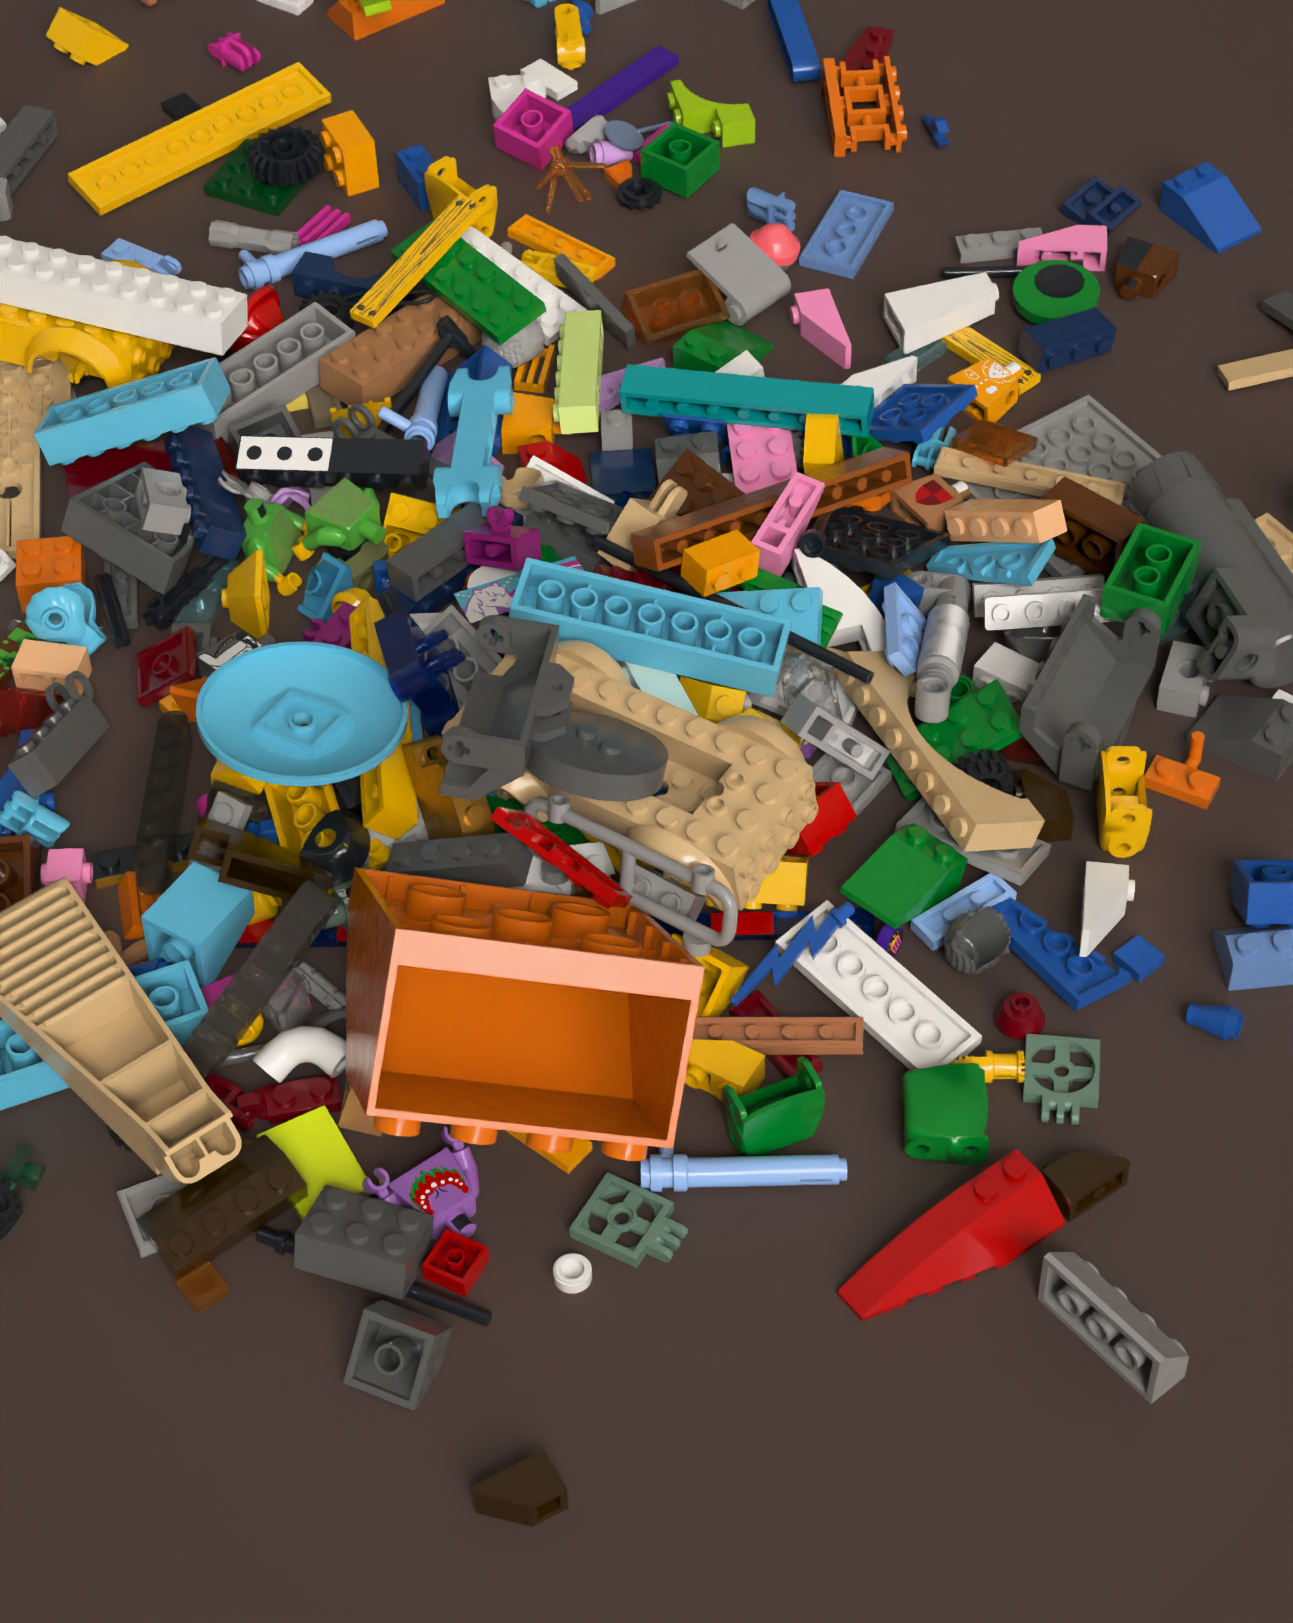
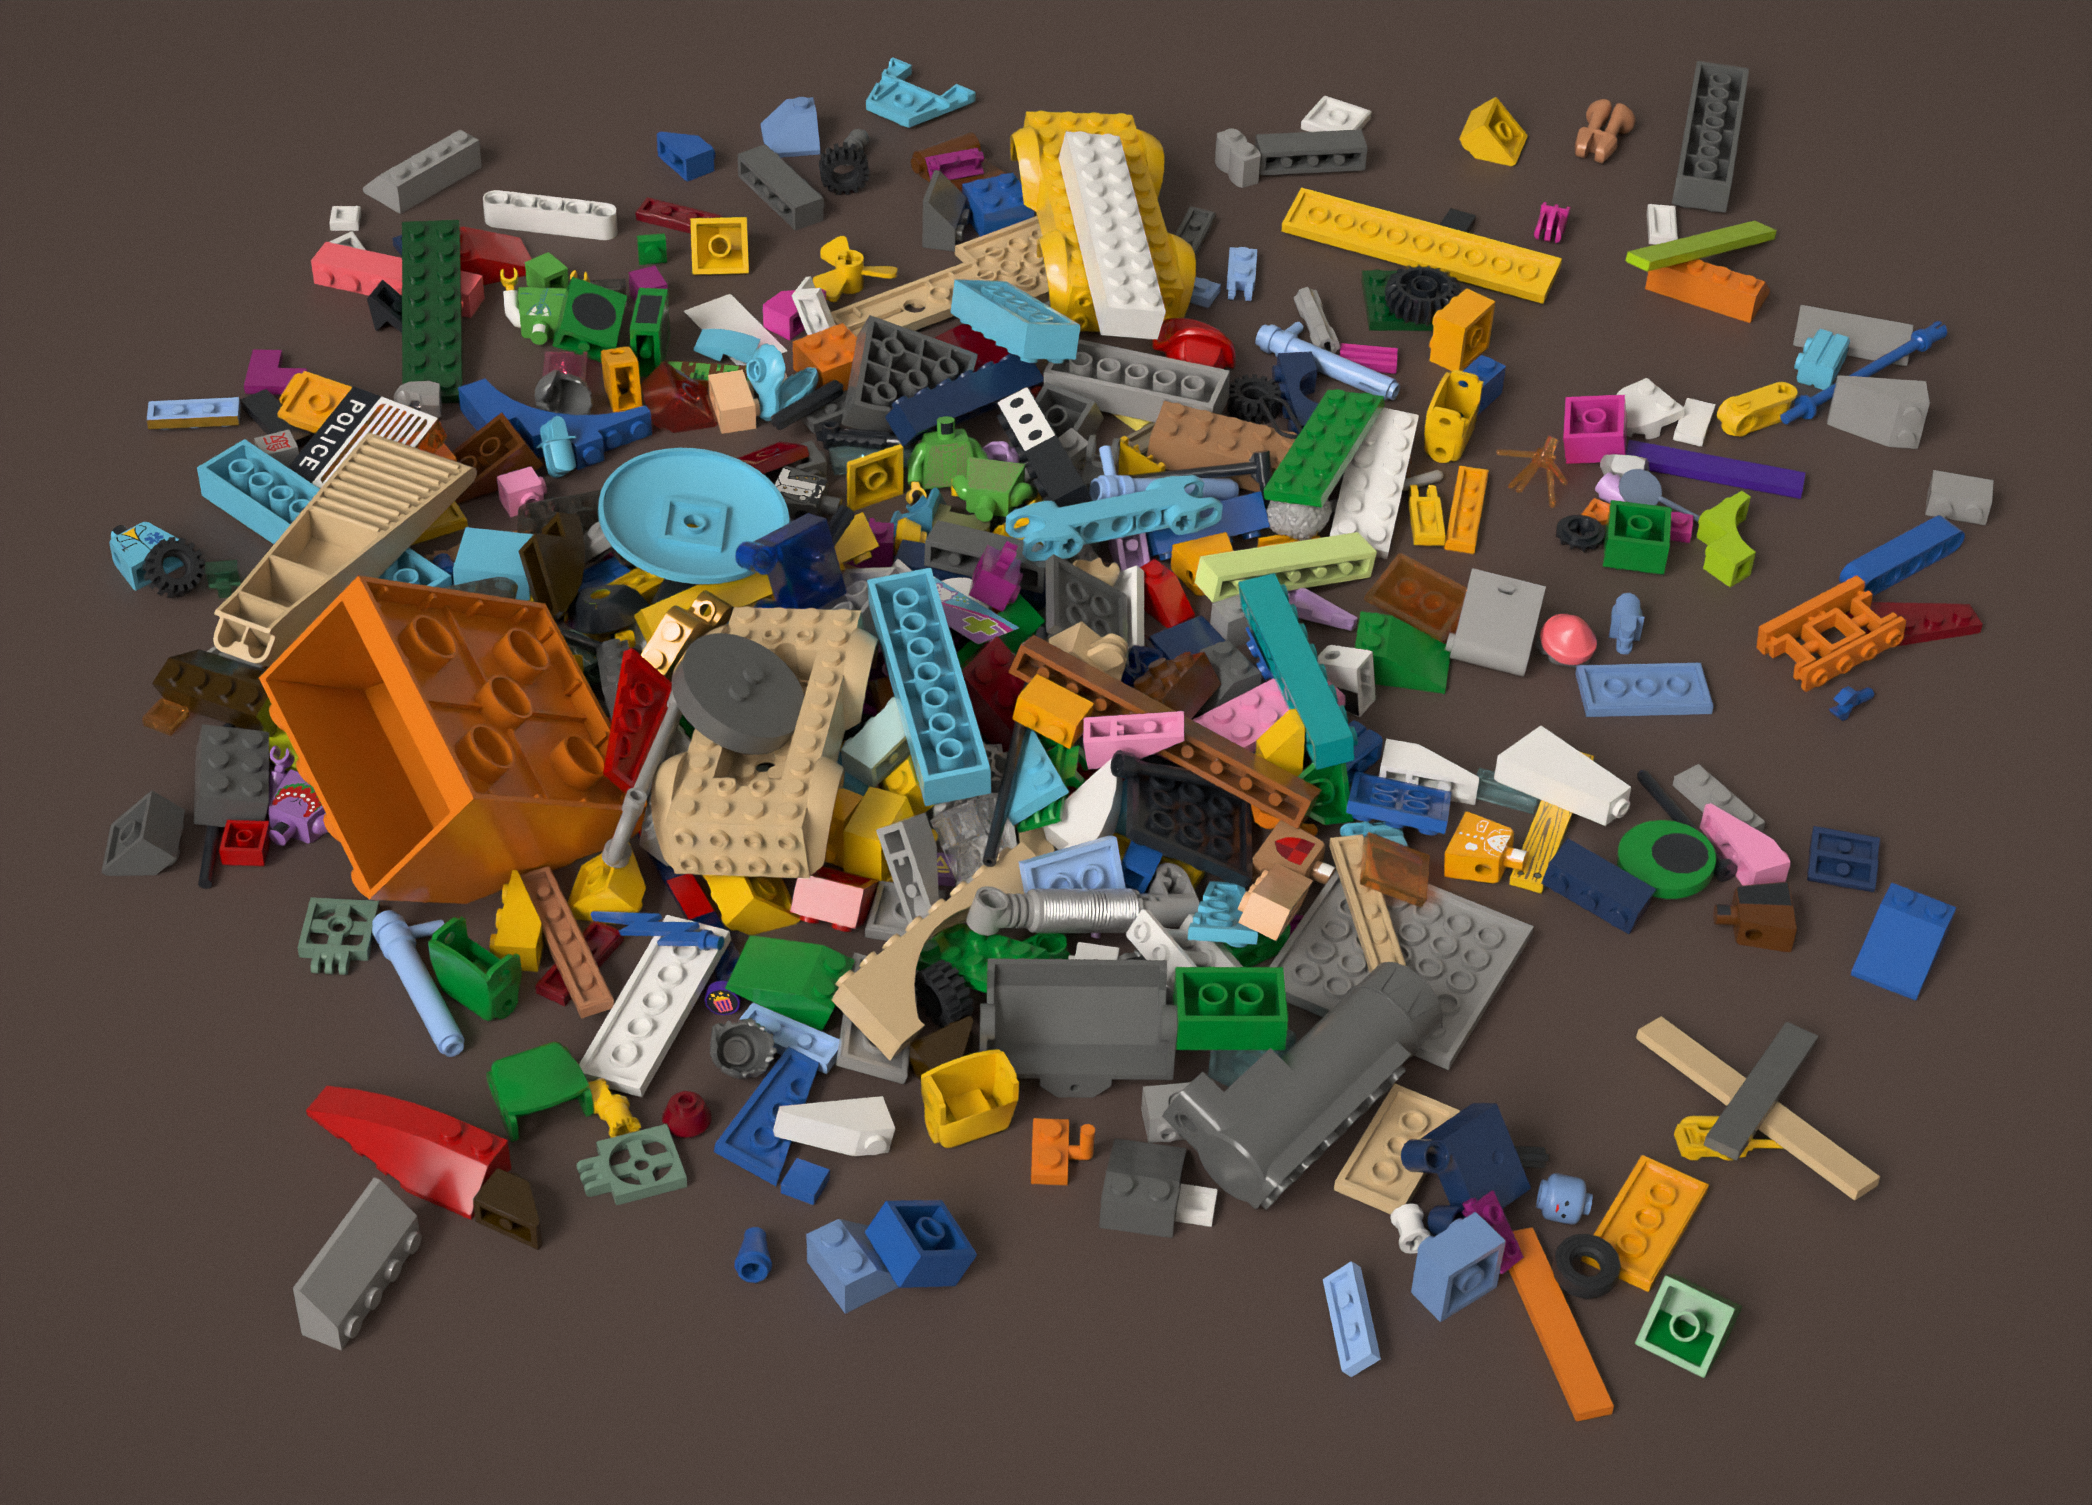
camera: 60 degrees right, 5 degrees down
(62, 739) = (636, 425): dark grey hinge -> none
(162, 501) = (915, 369): light grey brick -> none
(250, 491) = (977, 417): light grey plate -> none
(416, 261) = (1315, 404): yellow tile -> none
(507, 710) = (728, 622): dark grey piece -> none
(523, 1492) = (45, 956): dark brown slope -> none
(572, 1273) = (272, 917): white tile -> none
(595, 300) = (1394, 540): dark grey tile -> none
(821, 325) = (1493, 706): bright pink slope -> none
(1094, 525) = (1306, 961): reddish brown brick -> none

